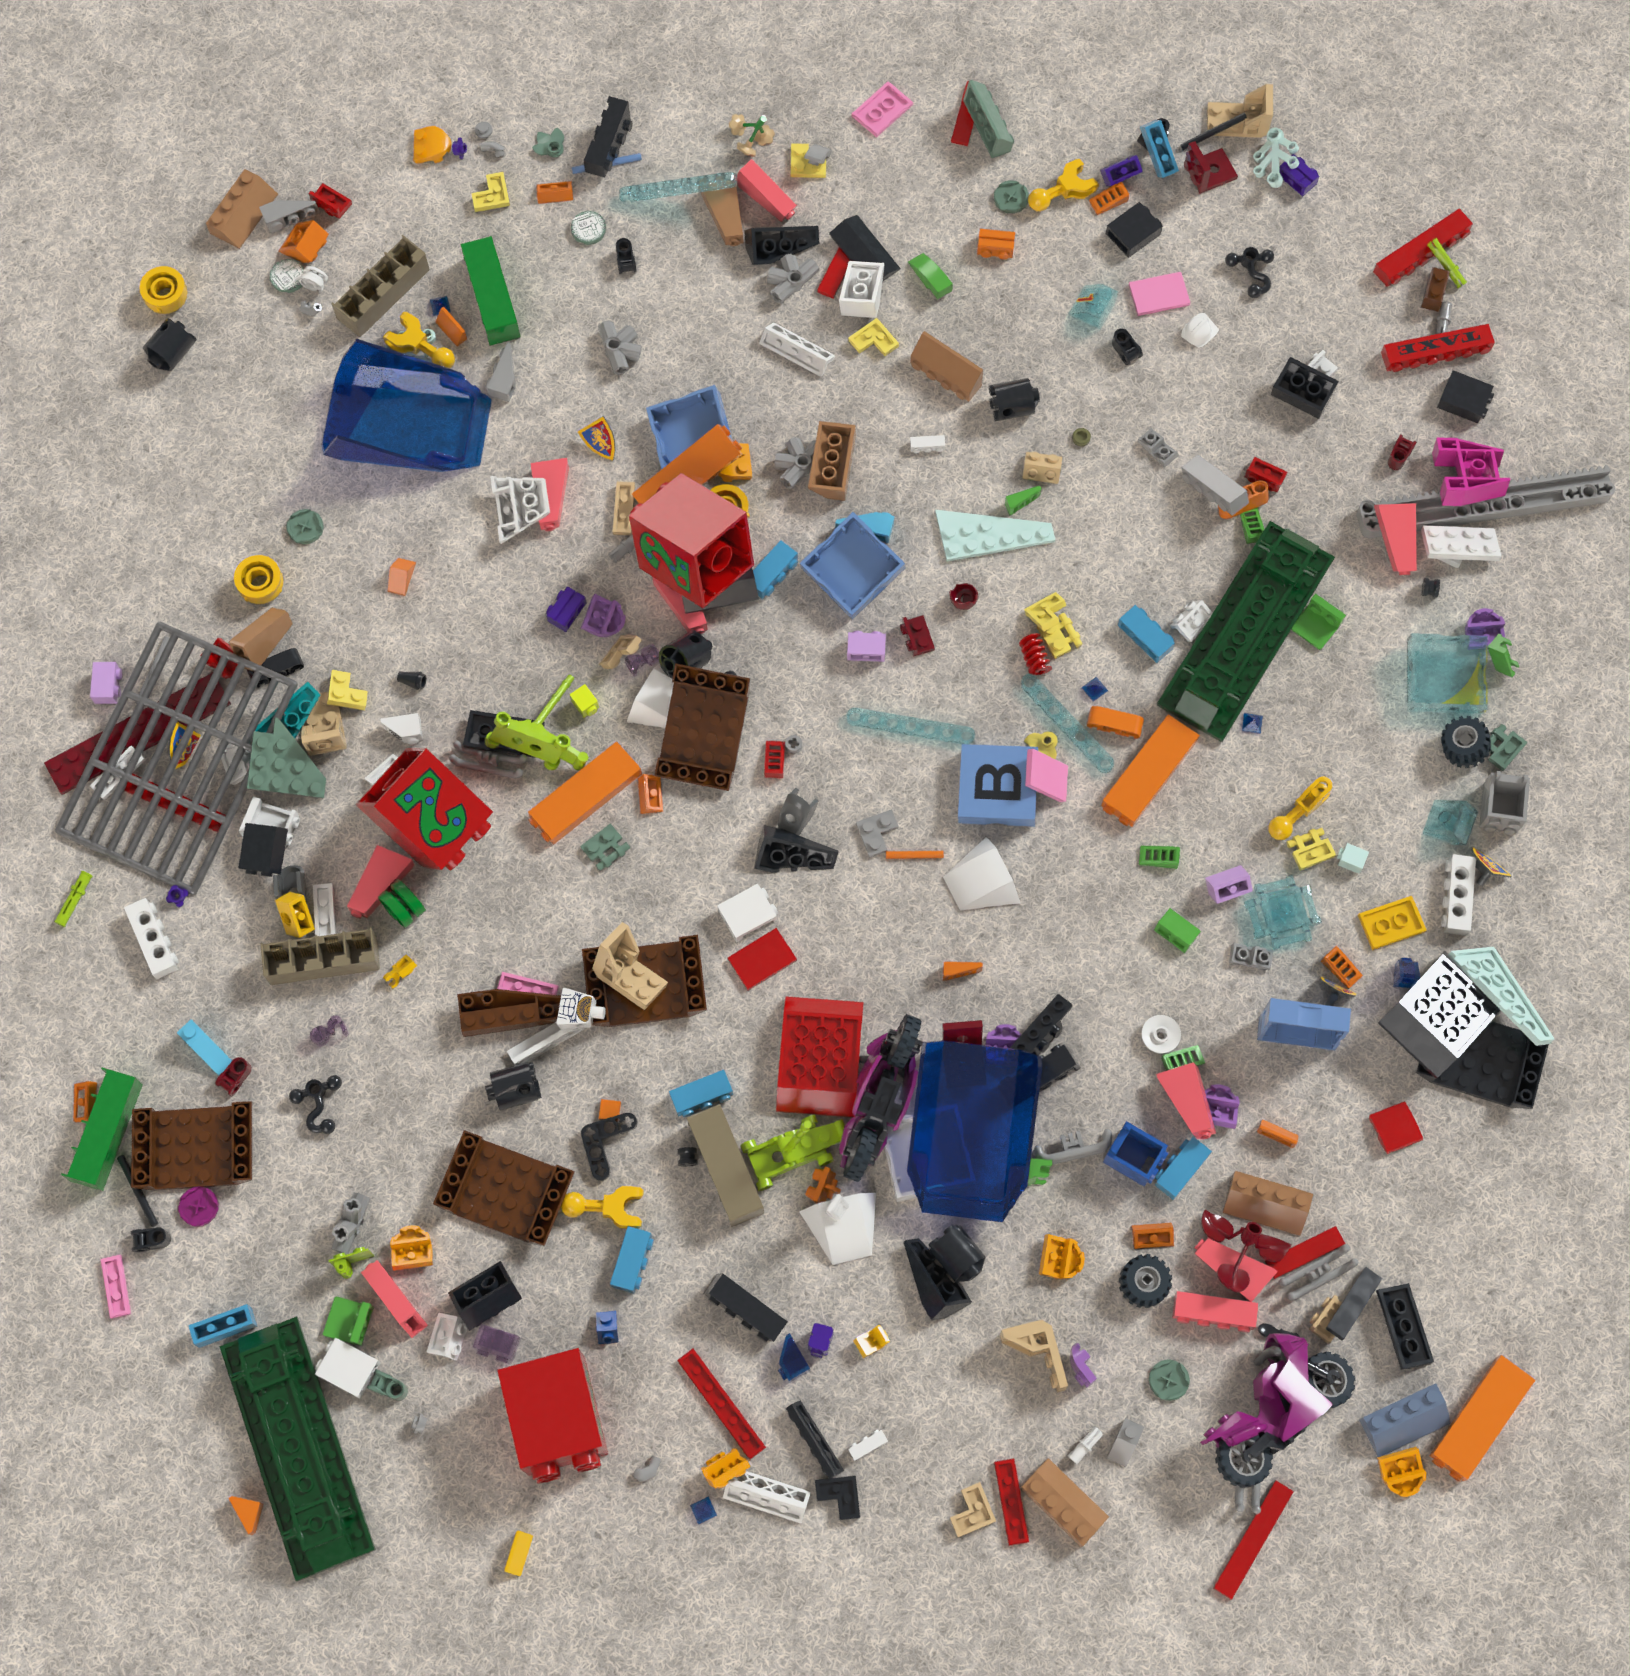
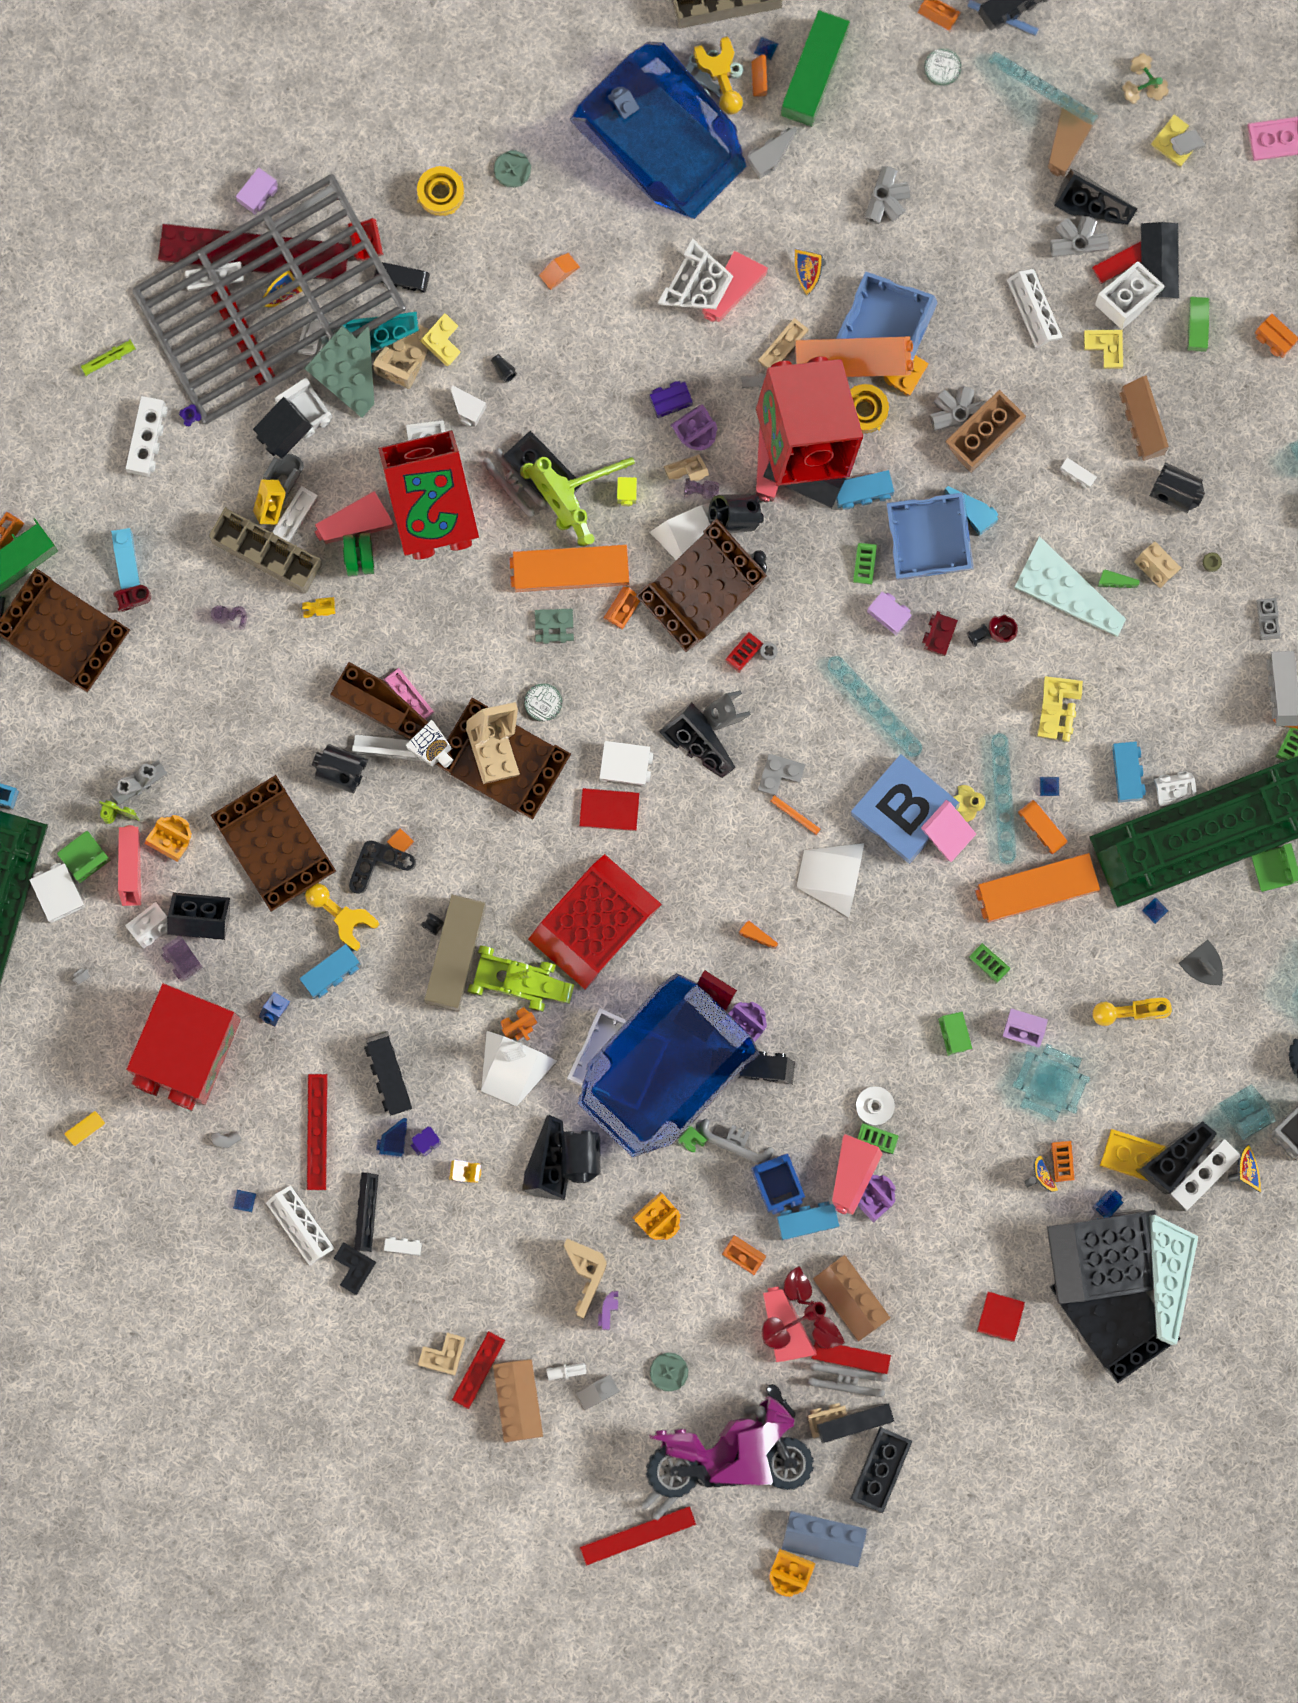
camera: 35 degrees right, 10 degrees up
(198, 1206) = (33, 681): magenta tile -> none
(261, 636) = (407, 244): medium nougat slope -> none
(296, 1096) = (169, 650): black piece -> none
(357, 415) = (623, 101): none -> sand blue bracket
(384, 1385) = (76, 926): sand green piece -> none
(625, 258) = (951, 121): black piece -> none
(642, 913) = (543, 702): none -> tile
(701, 1093) = (480, 882): dark azure brick -> none
(724, 1467) = (282, 1181): light orange slope -> none
(765, 191) = (1115, 146): coral slope -> none
(814, 609) = (868, 547): none -> bright green slope
(868, 1134) = (598, 999): piece -> none
(948, 614) = (979, 635): none -> black bush
(1033, 654) = (1020, 722): red piece -> none
(1044, 1027) = (785, 1031): black bracket -> none
(1145, 1281) = (709, 1285): black wheel -> none
(1215, 1310) = (744, 1347): coral brick -> none
(1251, 957) = (997, 1098): light grey slope -> none
(1277, 1133) = (905, 1251): orange slope -> none
(1303, 1024) = (987, 1183): medium blue tile -> none
(1312, 854) = (1115, 1054): light yellow plate -> none
(1323, 736) = (1204, 964): none -> dark grey shield
(1352, 858) = (1143, 1081): light aqua brick -> none
(1429, 897) = (1176, 1159): none -> black wedge
(1481, 1418) = (882, 1581): orange brick -> none

